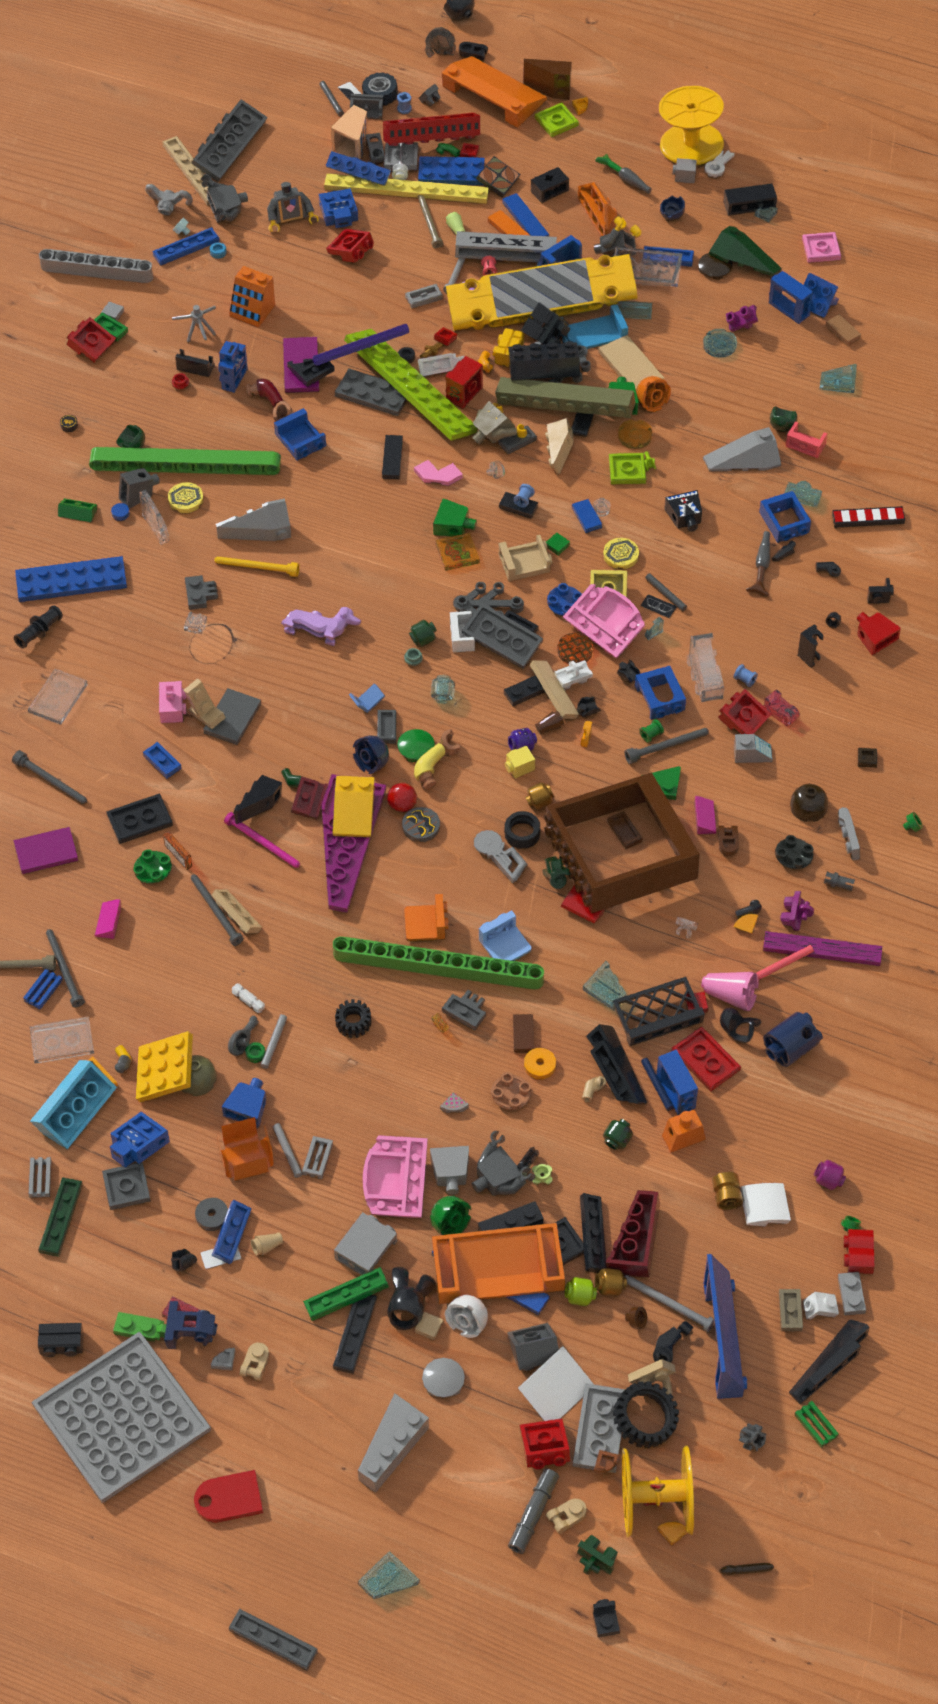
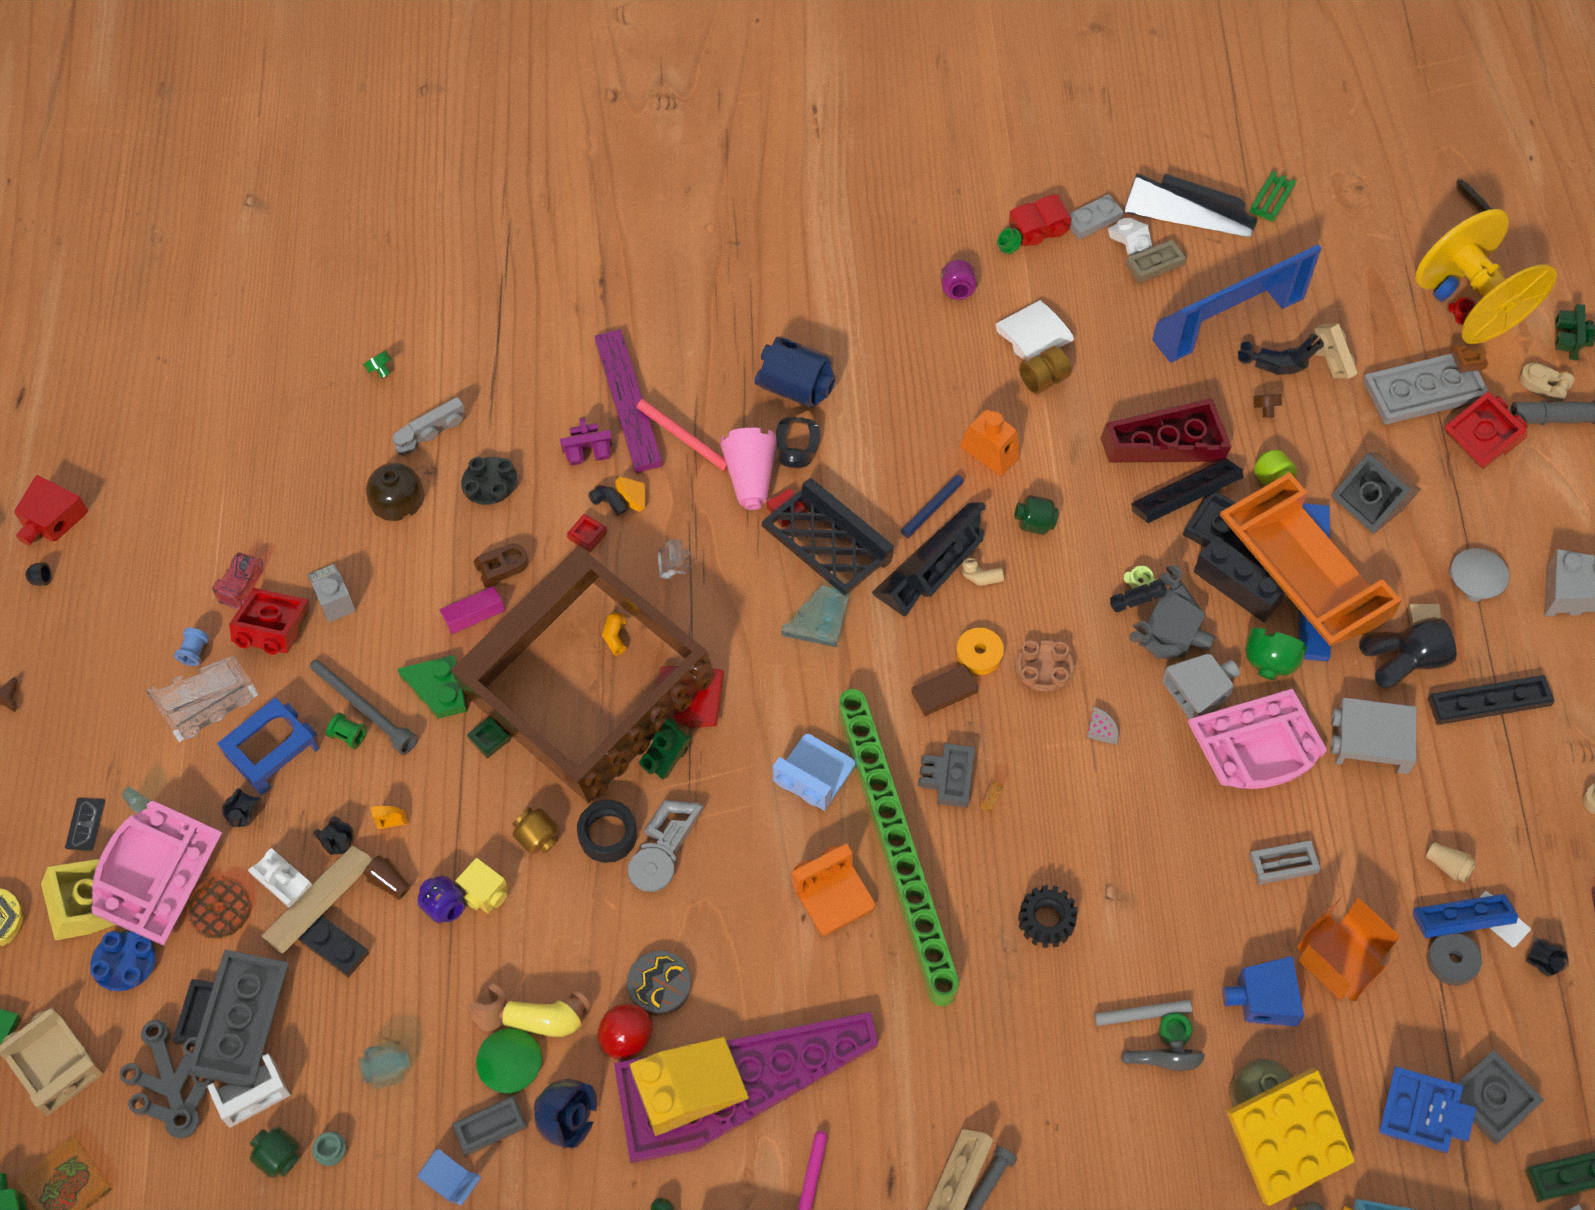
camera: 115 degrees left, 5 degrees up
(248, 998) = (1094, 1086): white axle -> none
(287, 1150) = (1298, 907): light grey bar -> none
(309, 798) = (691, 1174): dark red plate -> none
(346, 1294) = (1456, 728): green tile -> none
(467, 1315) = (1392, 566): white cylinder -> none
(555, 1386) = (1412, 446): white sticker -> none
(610, 1282) = (1245, 444): pearl gold head -> none
(624, 830) = (542, 699): reddish brown tile -> none
(630, 1430) = (1387, 322): black tyre -> none
(666, 592) = (53, 821): dark grey bar -> none
(677, 1082) = (930, 468): blue window -> none
(706, 1059) = (864, 467): red tile -> none
(707, 1323) = (1224, 333): light grey bar -> none
(731, 892) = (587, 532): none -> red tile
(752, 1437) = (1335, 239): dark grey gear -> none
(808, 644) = (111, 575): black hinge -> none
(839, 881) = (513, 417): dark grey pin -> none
(867, 757) = (283, 454): dark brown tile -> none

